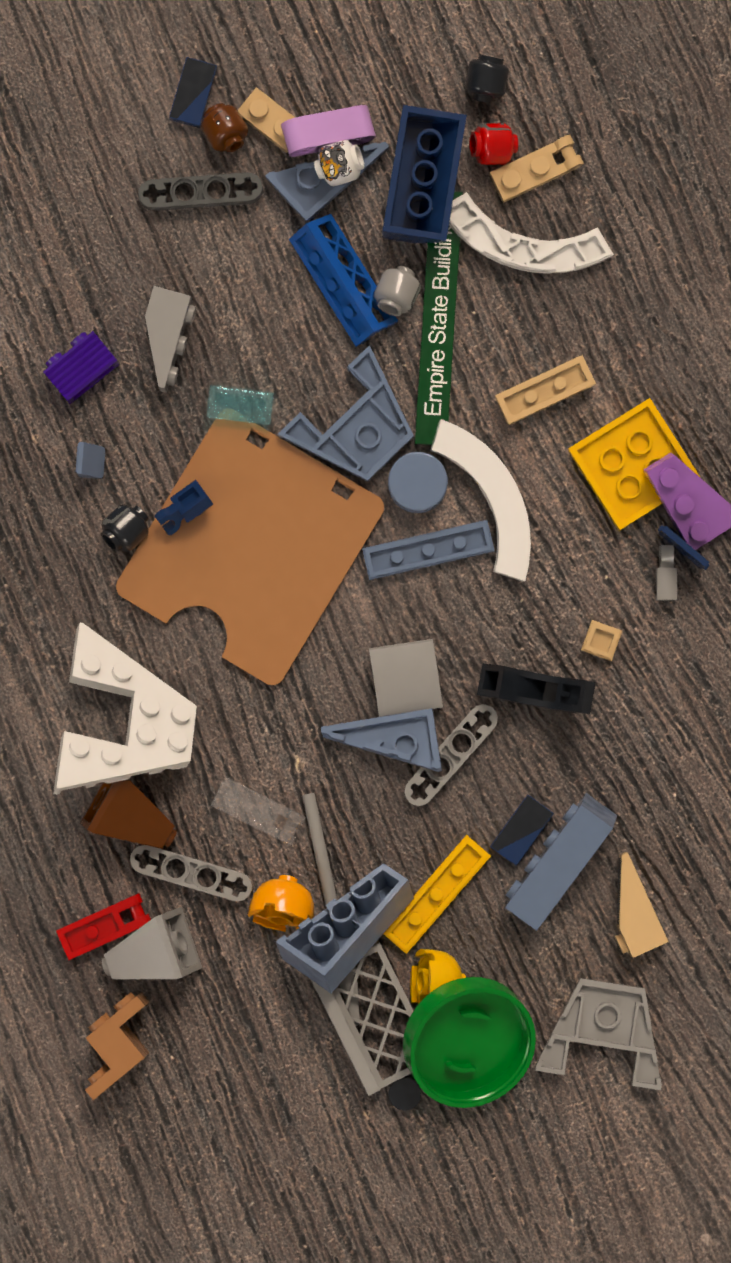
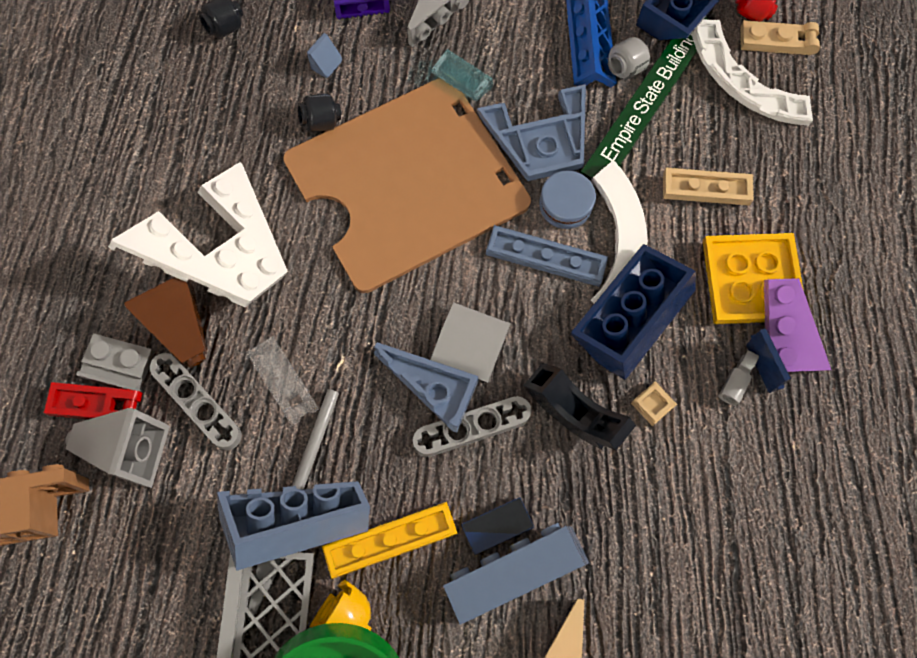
camera: 25 degrees right, 15 degrees down
(96, 880) = (115, 363): none -> light grey plate
(186, 504) = (377, 119): dark blue plate -> none
(281, 903) = (249, 466): light orange cylinder -> none
(539, 564) = (635, 310): none -> dark blue slope

